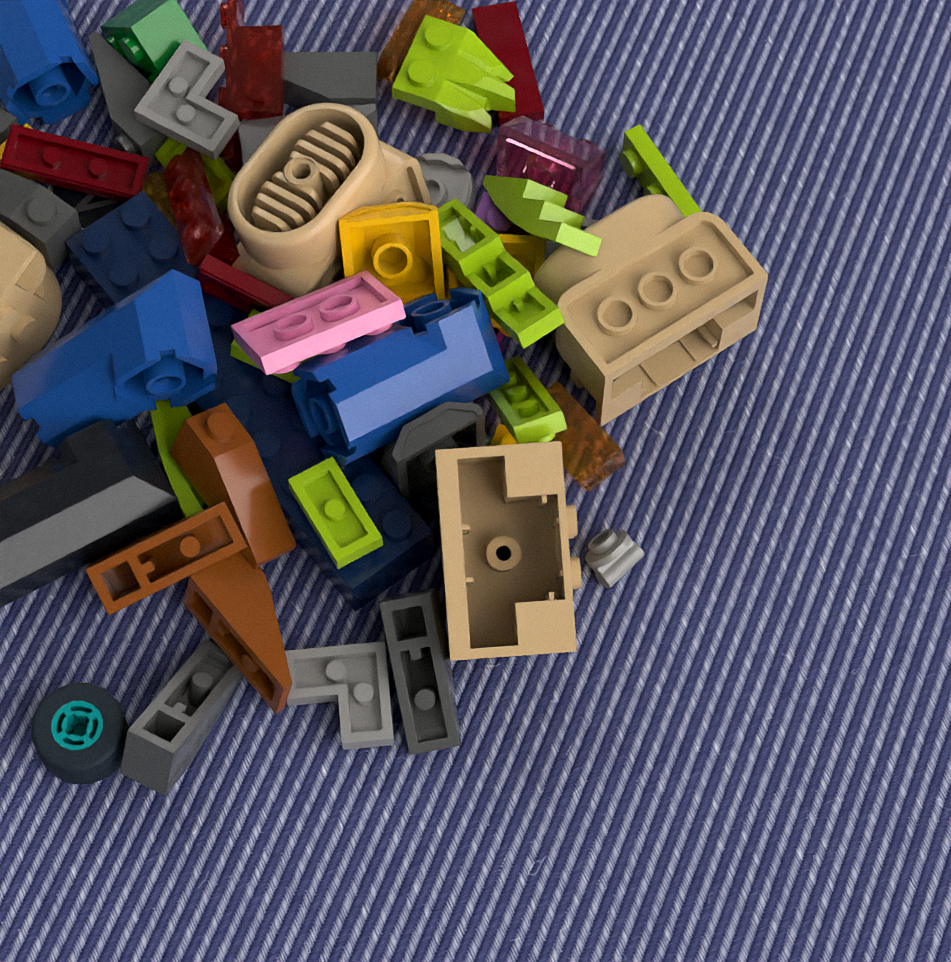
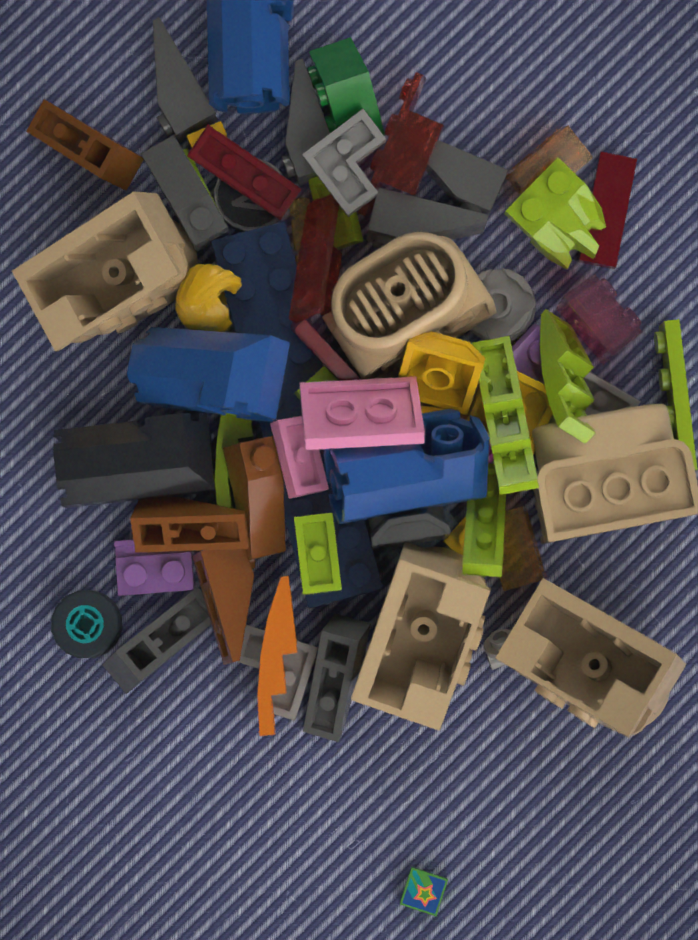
camera: 20 degrees right, 20 degrees up
(73, 293) = (202, 297): none -> yellow hair
(140, 638) = (152, 571): none -> medium lavender plate
(265, 413) = (300, 467): none -> bright pink plate
(334, 649) = (277, 641): none -> orange slope
(650, 883) = (423, 891): none -> tile
(726, 505) = (590, 661): none -> tan brick

